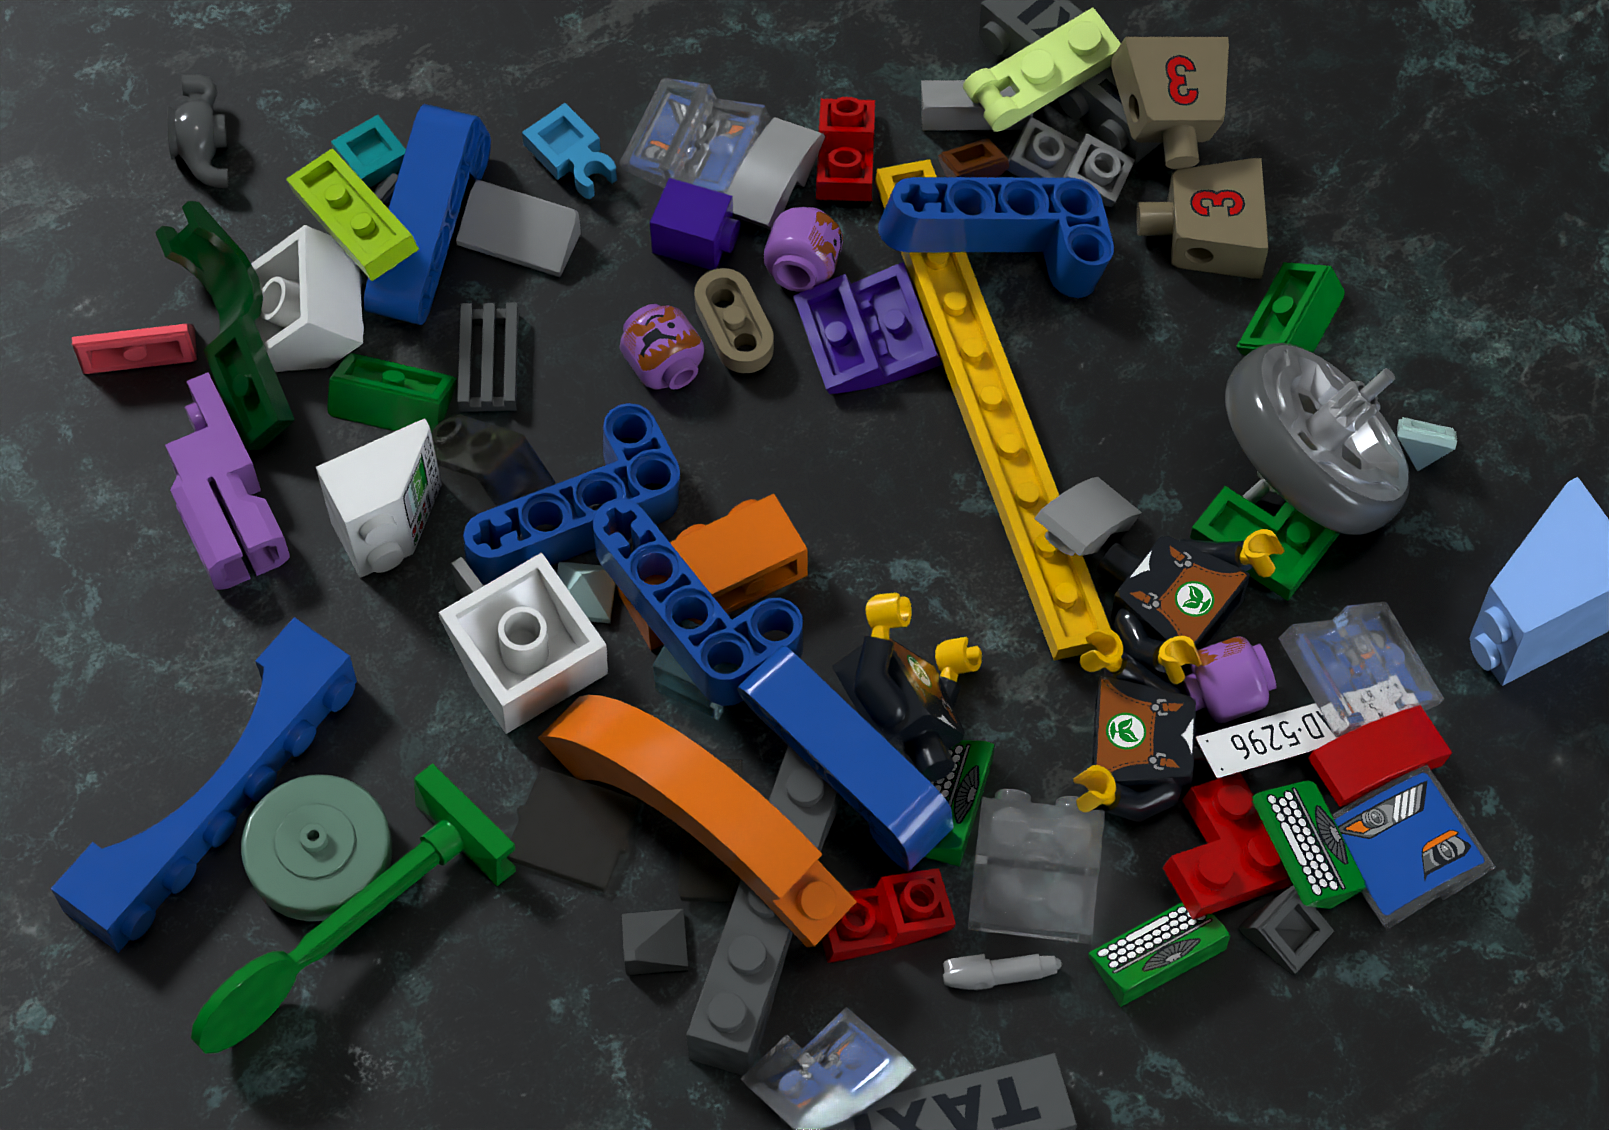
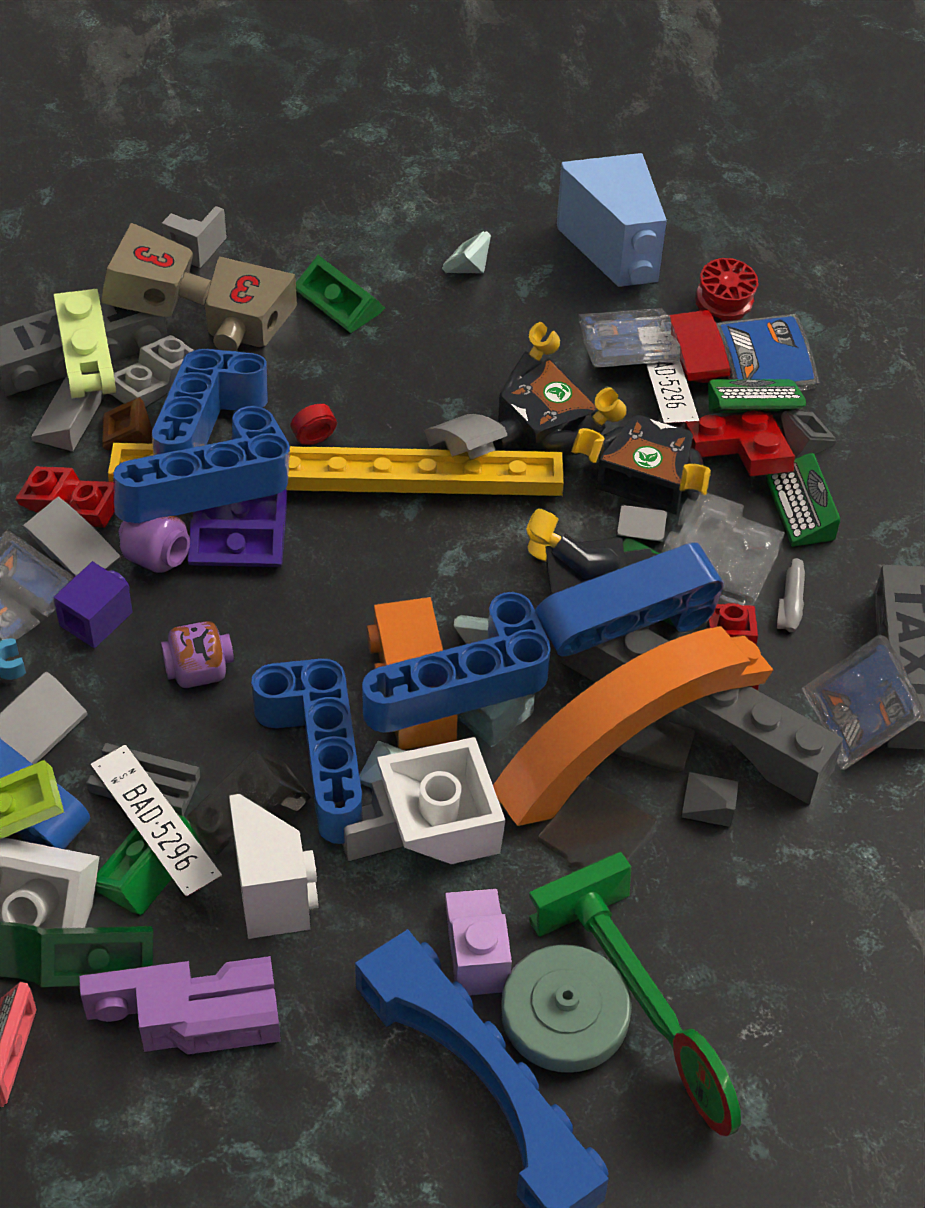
camera: 75 degrees left, 10 degrees down
(379, 737) = (478, 940): none -> lavender arch
(428, 375) = (156, 820): none -> white sticker
(737, 324) = (193, 602): dark tan plate -> none
(817, 620) = (471, 628): none -> light aqua slope
(833, 202) = (206, 475): none -> blue beam
(1019, 758) = (642, 523): none -> light grey slope
(1049, 353) = (313, 424): none -> red tile
(1231, 679) = (630, 391): medium lavender head -> none
(1304, 541) = (508, 332): green plate -> none
(1309, 131) = (198, 236): none -> light grey panel
(1317, 438) = (466, 285): wheel -> none
(1509, 770) = (726, 289): none -> red wheel

